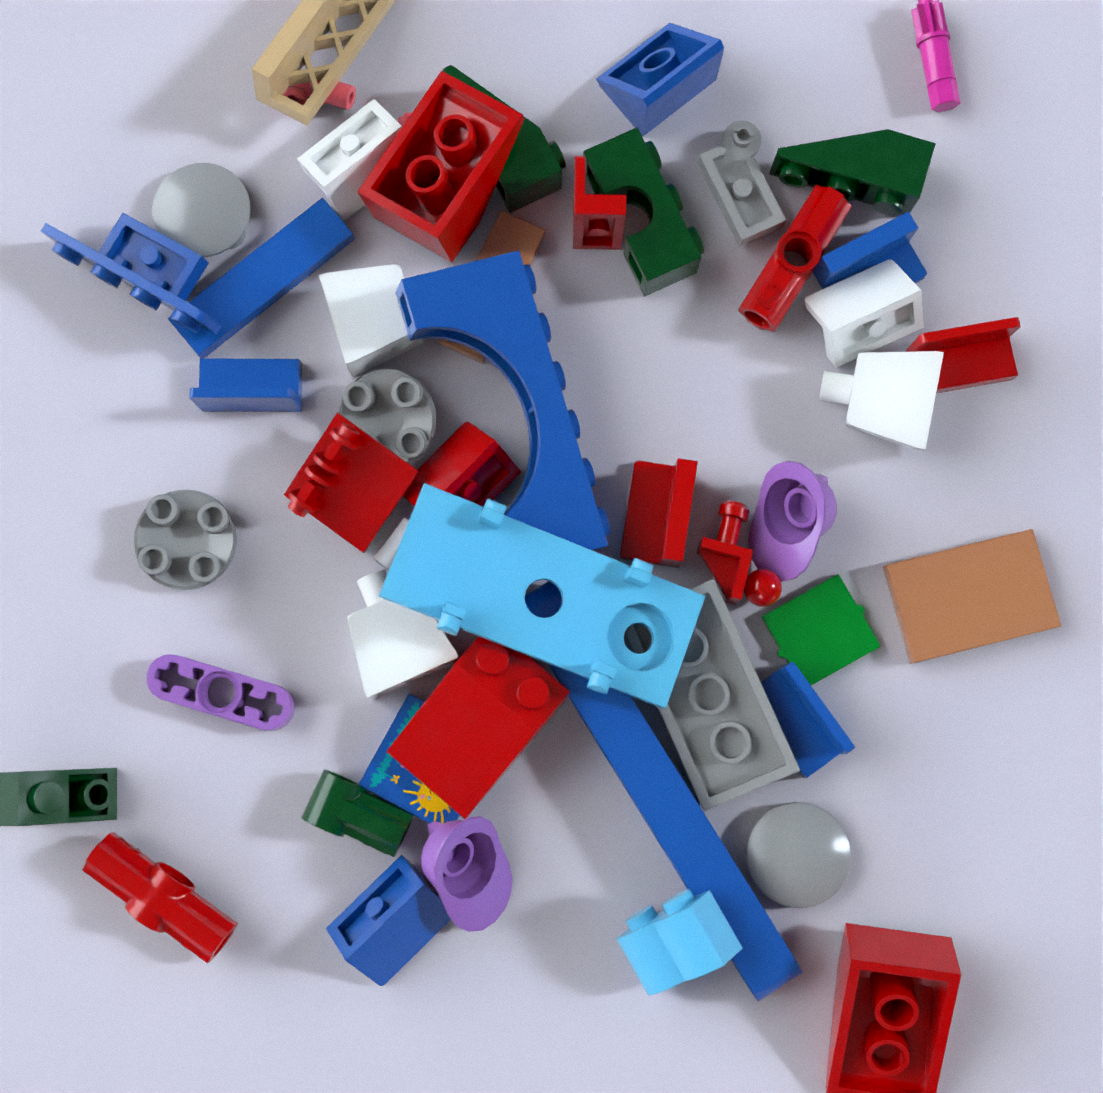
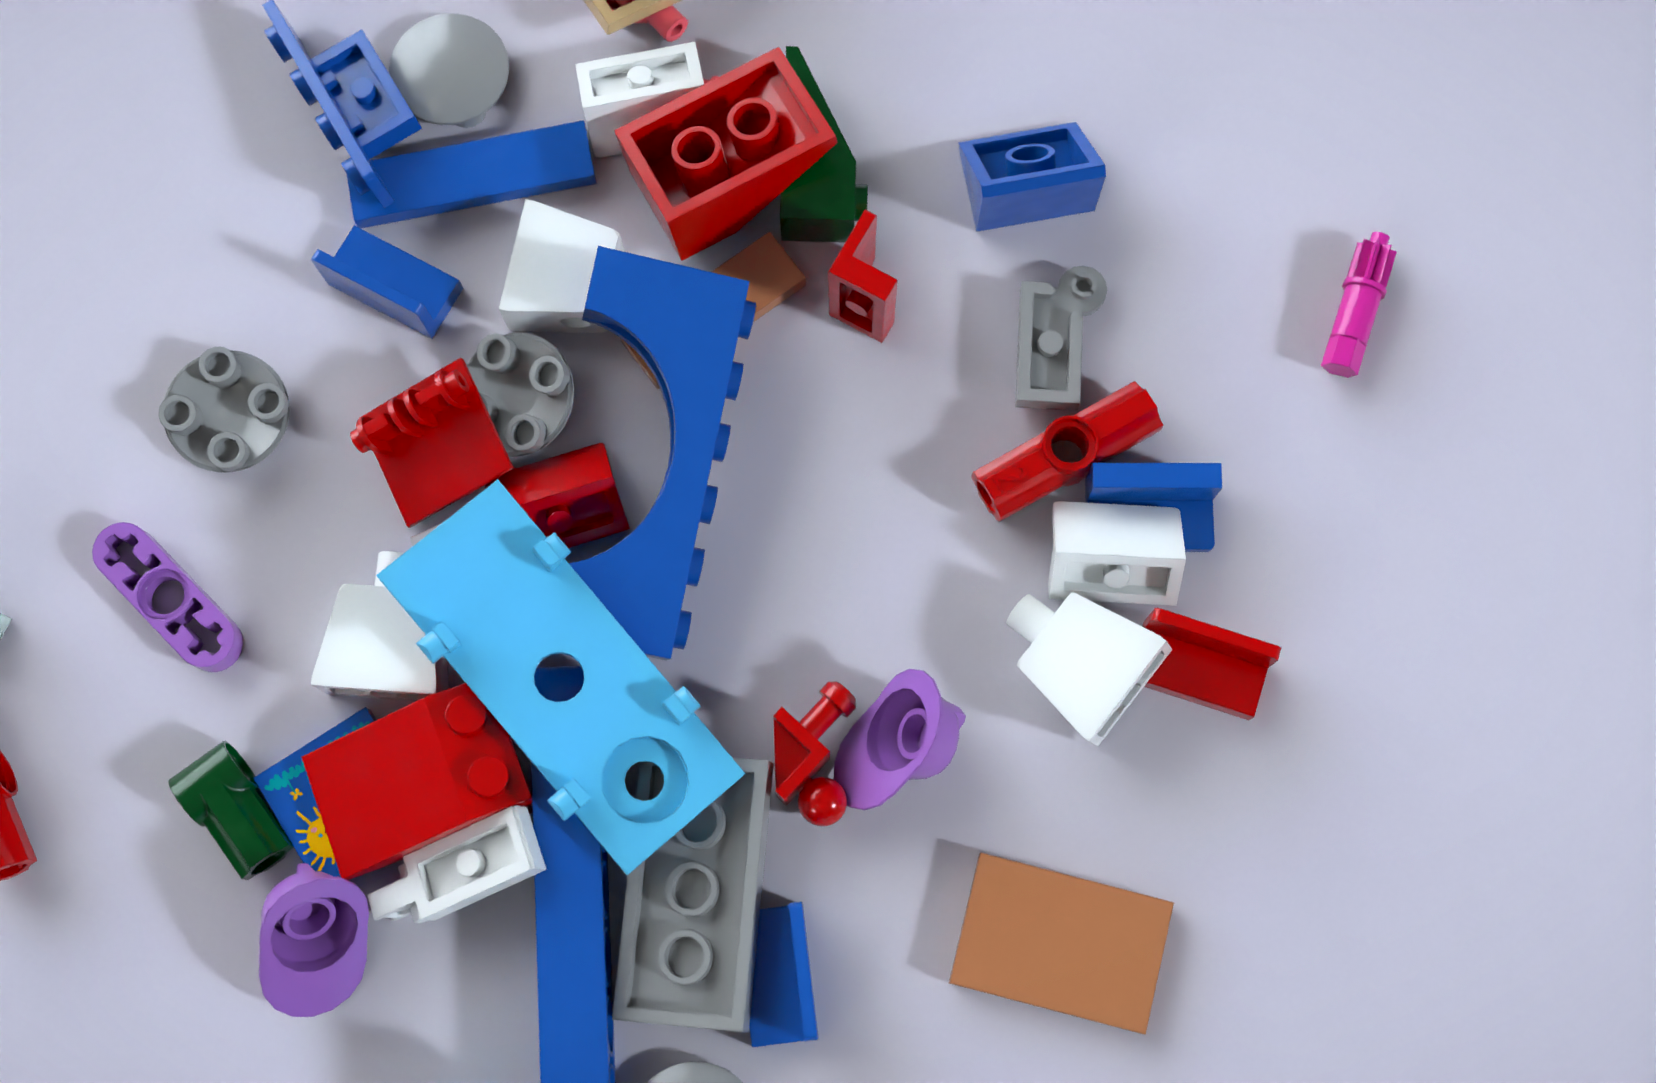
camera: 30 degrees right, 5 degrees down
(389, 922) = (194, 951): blue panel -> none
(545, 765) = (462, 868): none -> white hinge
(658, 512) = (756, 655): red panel -> none
(666, 247) = (923, 363): dark green arch -> none
(821, 630) = (865, 889): green piece -> none
(867, 167) = (1208, 391): dark green slope -> none

